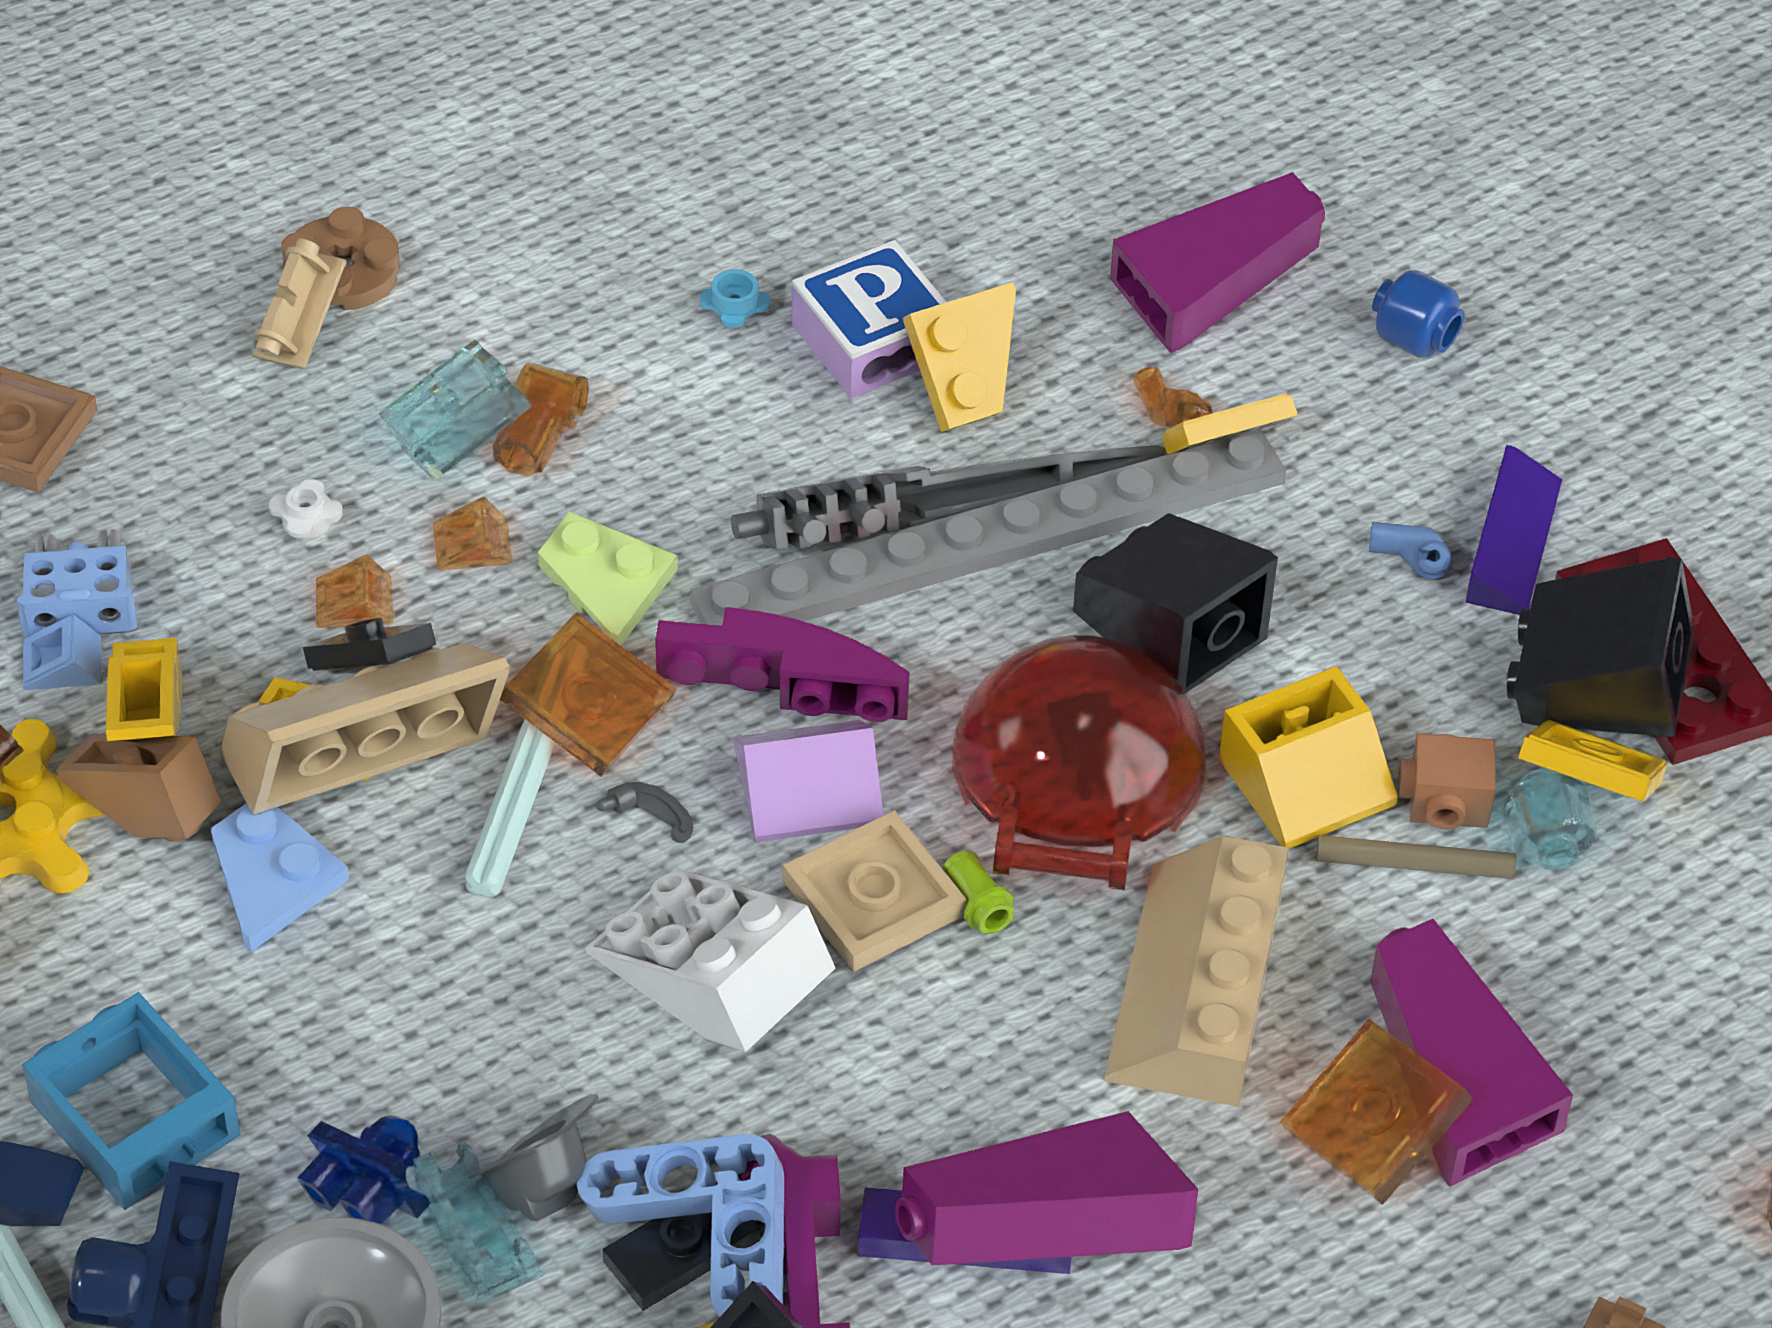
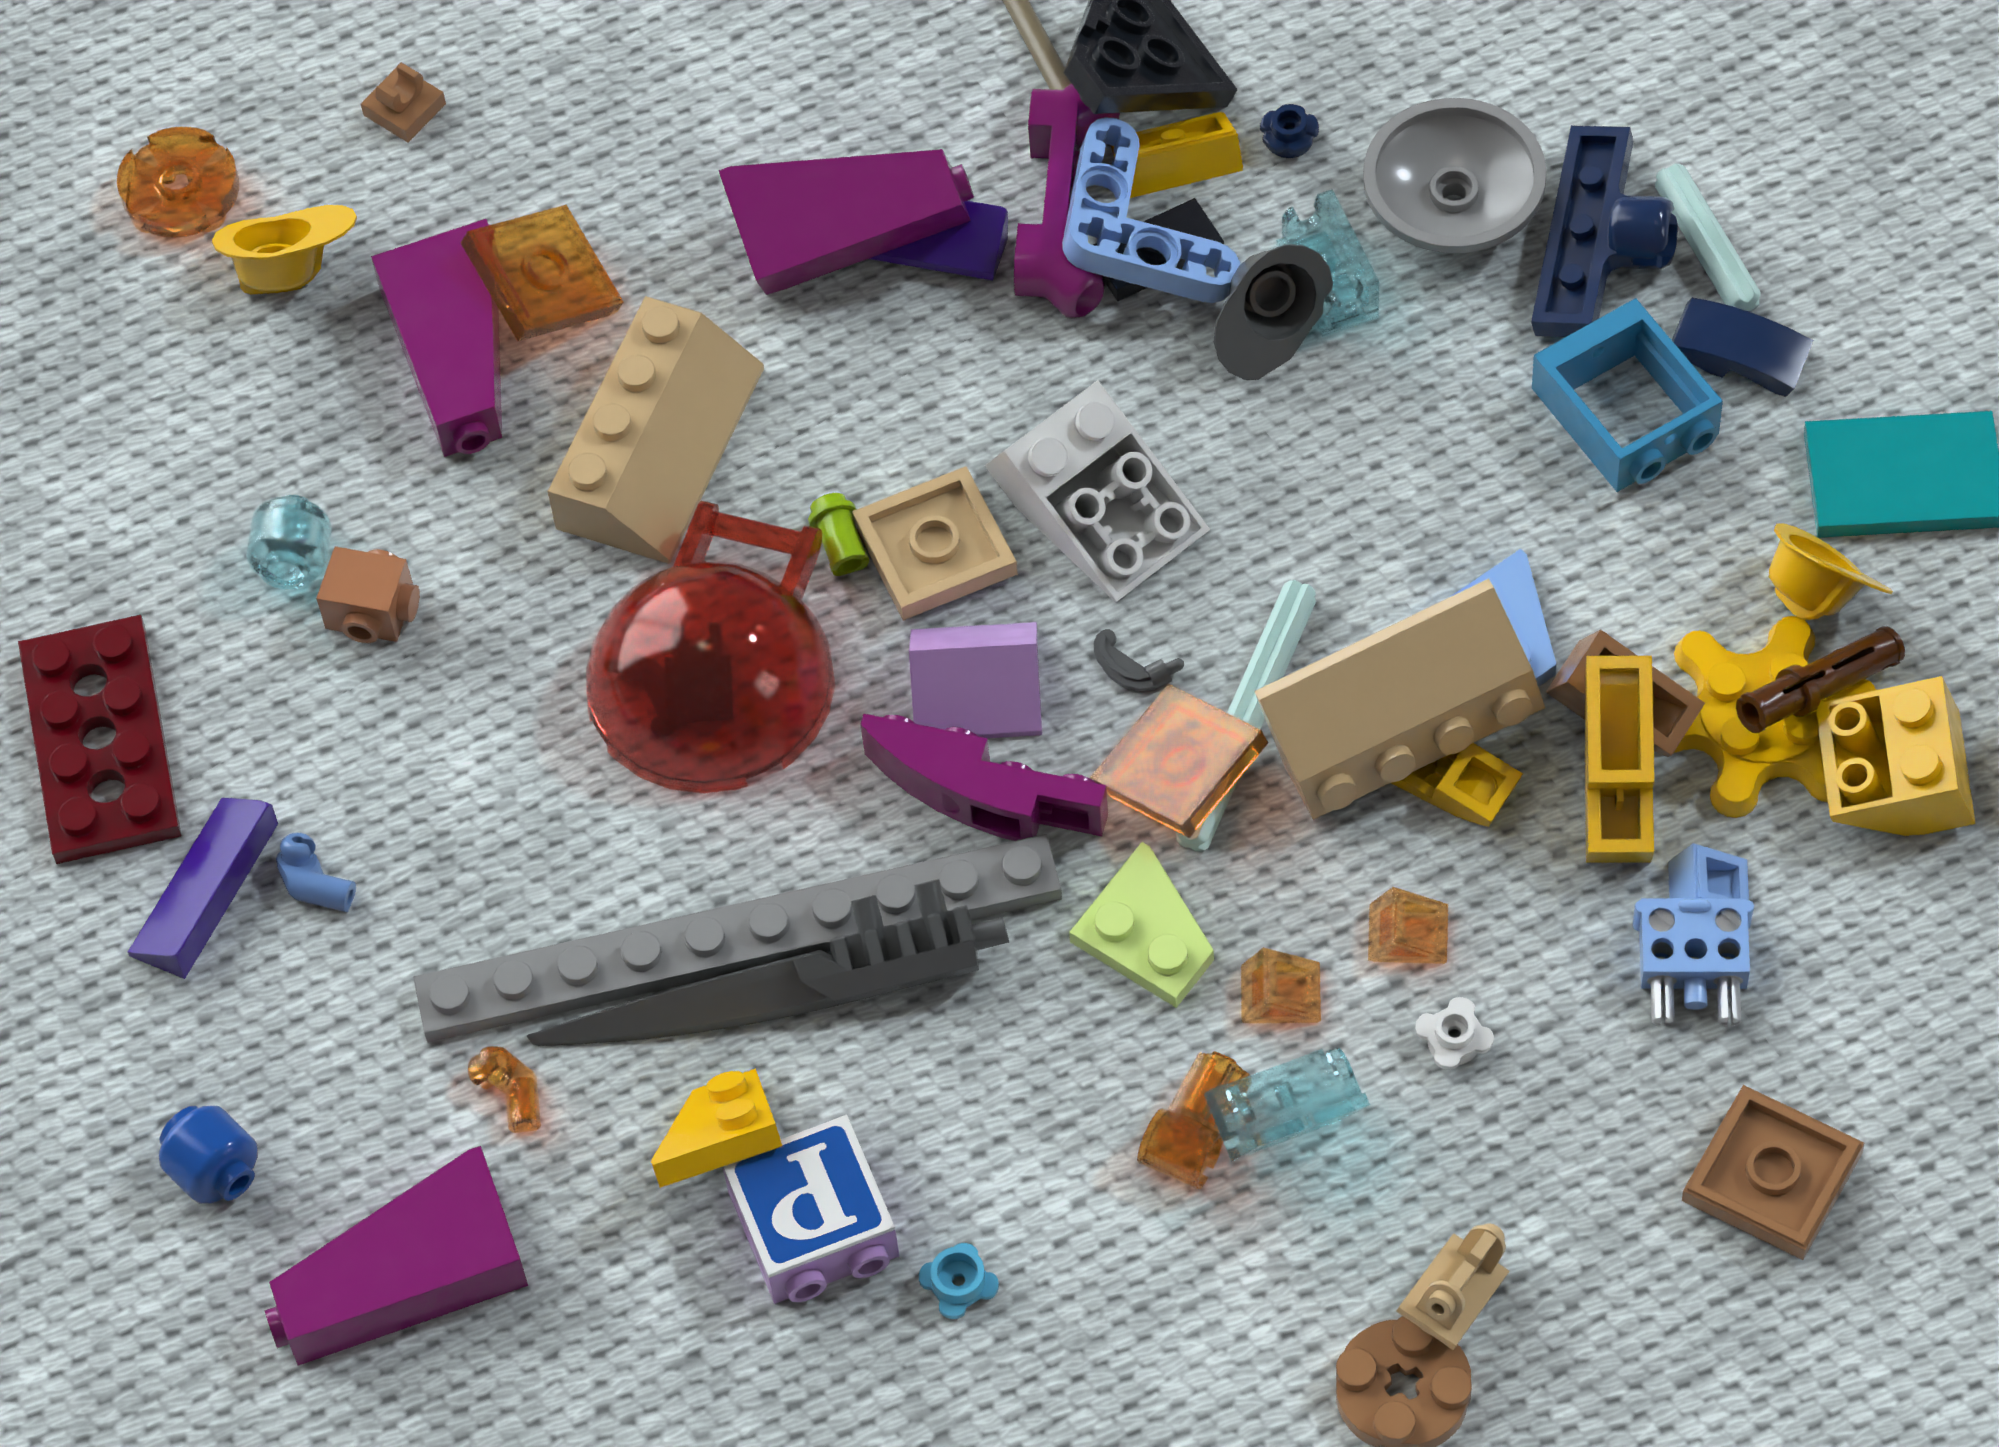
camera: 165 degrees left, 10 degrees up
(365, 1172) = (1416, 297): clear blue hips -> none
(369, 645) = (1393, 814): black plate -> none
(1180, 596) = (574, 797): black slope -> none
(1229, 423) = (457, 1024): yellow tile -> none
(1307, 758) = (500, 626): yellow slope -> none
(1416, 857) = (422, 544): dark tan bar -> none
(1593, 760) = (228, 583): yellow tile -> none
(1606, 650) = (177, 666): black slope -> none
(1683, 1118) = (283, 249): none -> yellow piece

